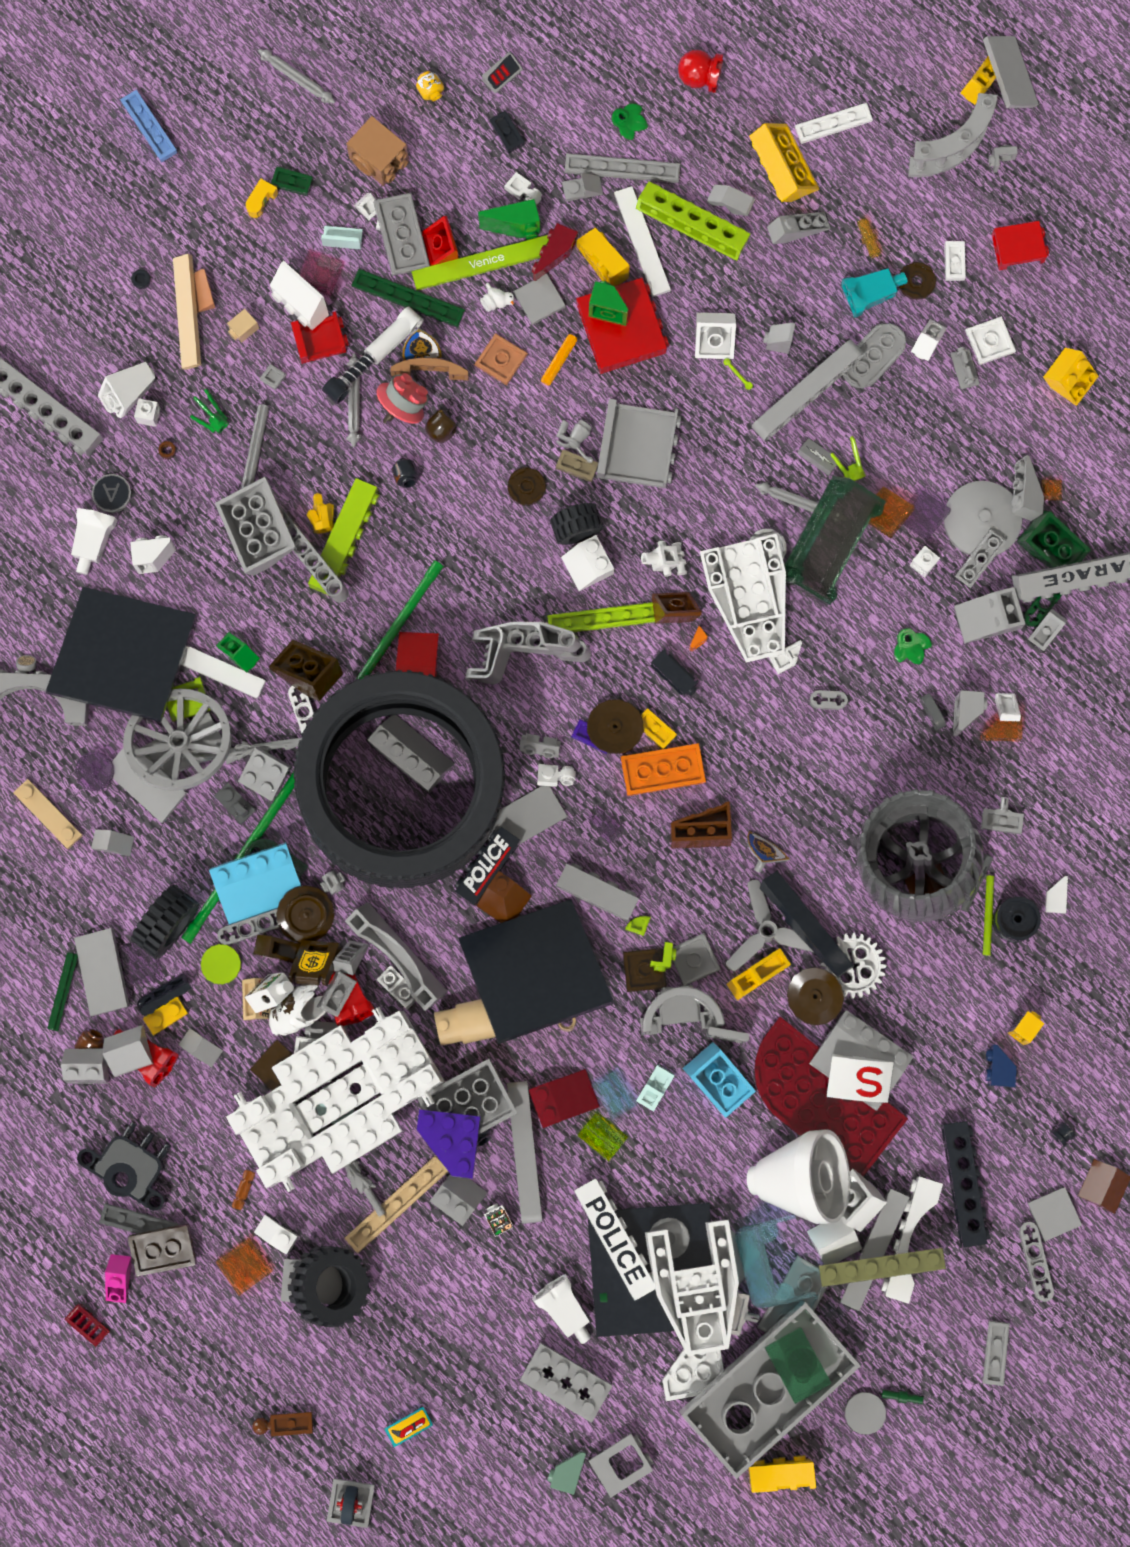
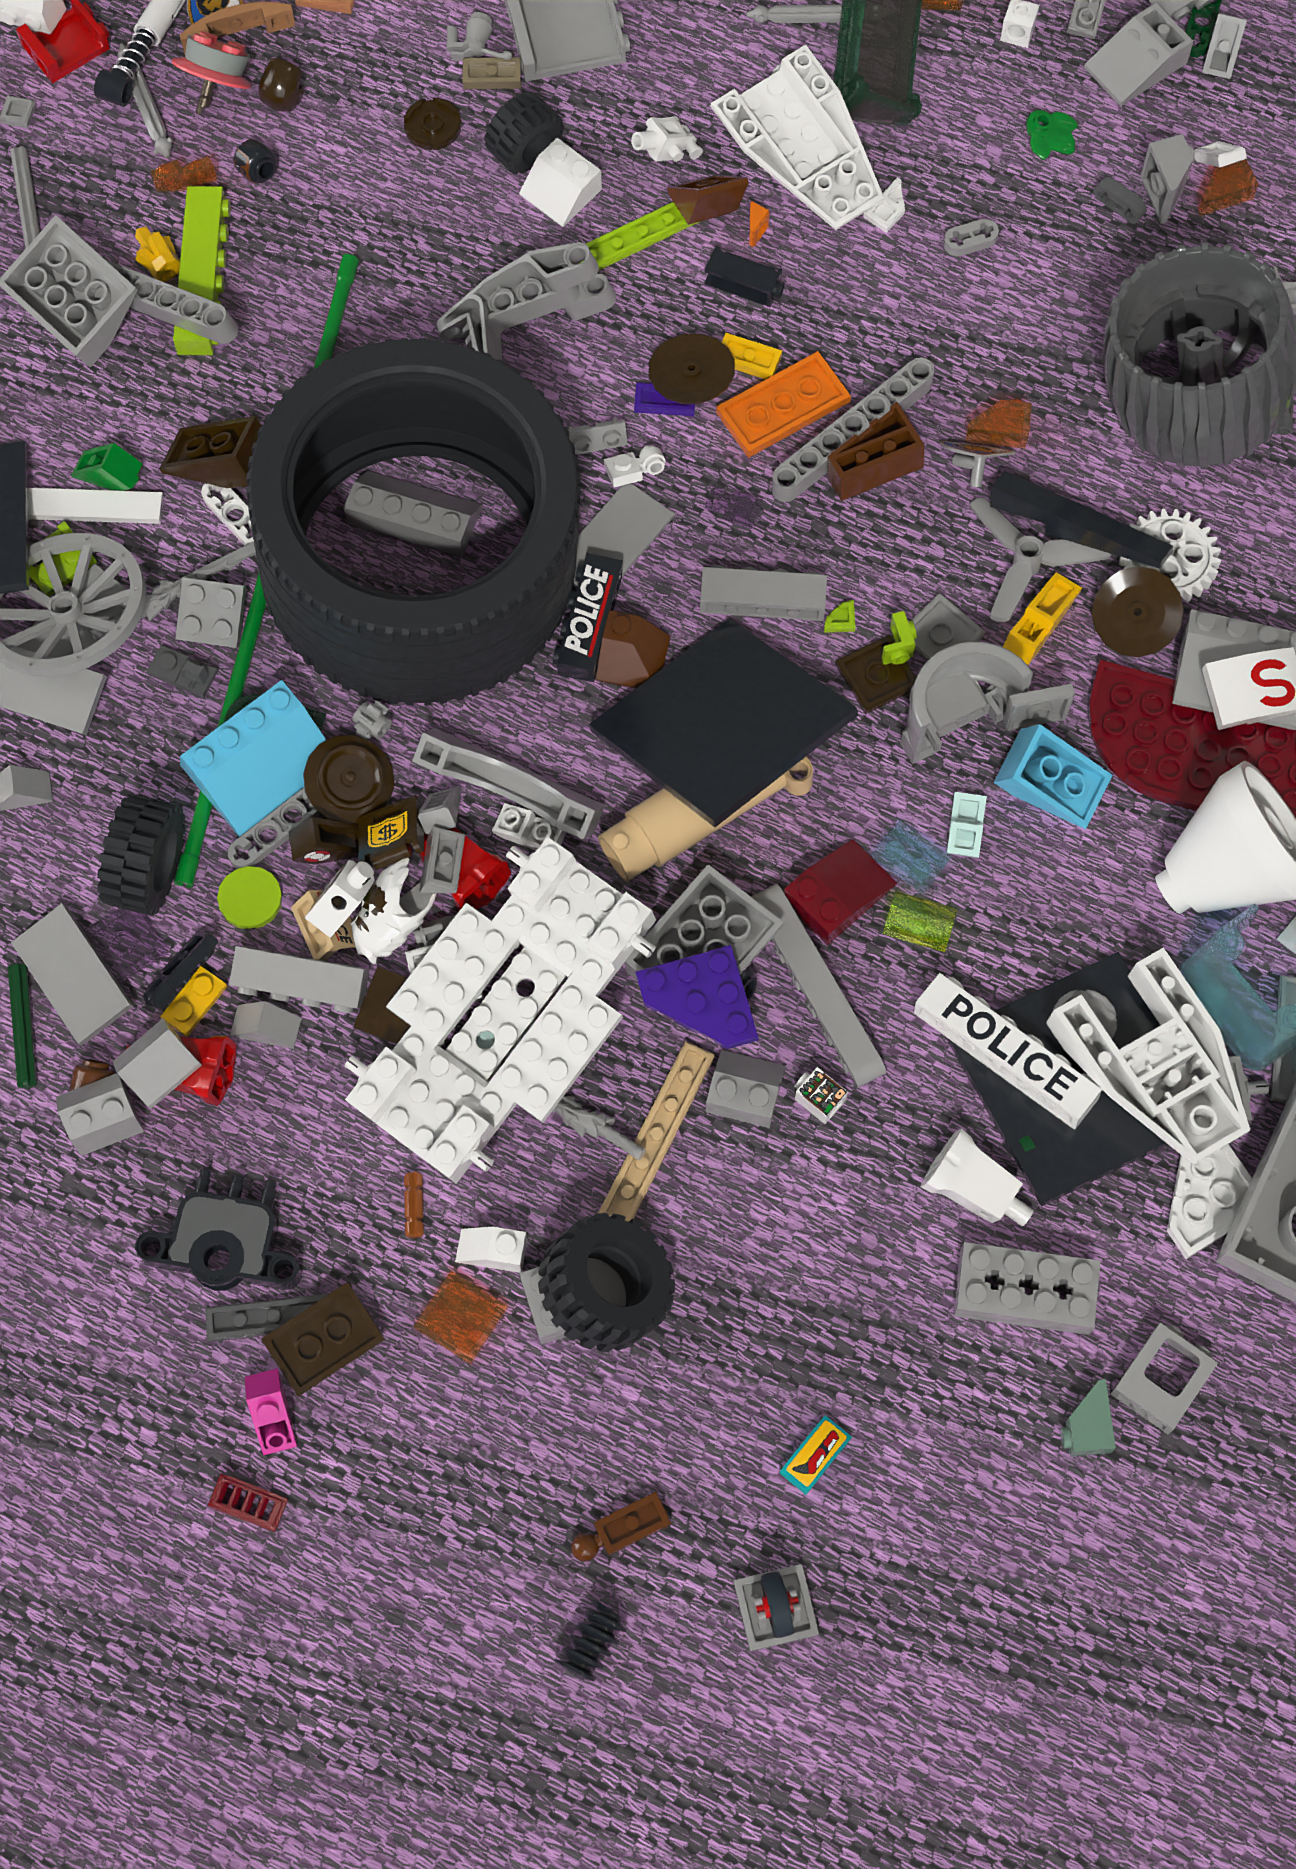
camera: 20 degrees left, 10 degrees down
(229, 1028) = (298, 977): none -> light grey brick
(242, 1482) = (592, 1642): none -> black piece
(351, 464) = (173, 178): none -> clear orange slope
(705, 798) = (858, 418): none -> light grey beam
(790, 837) = (1002, 425): none -> clear orange slope

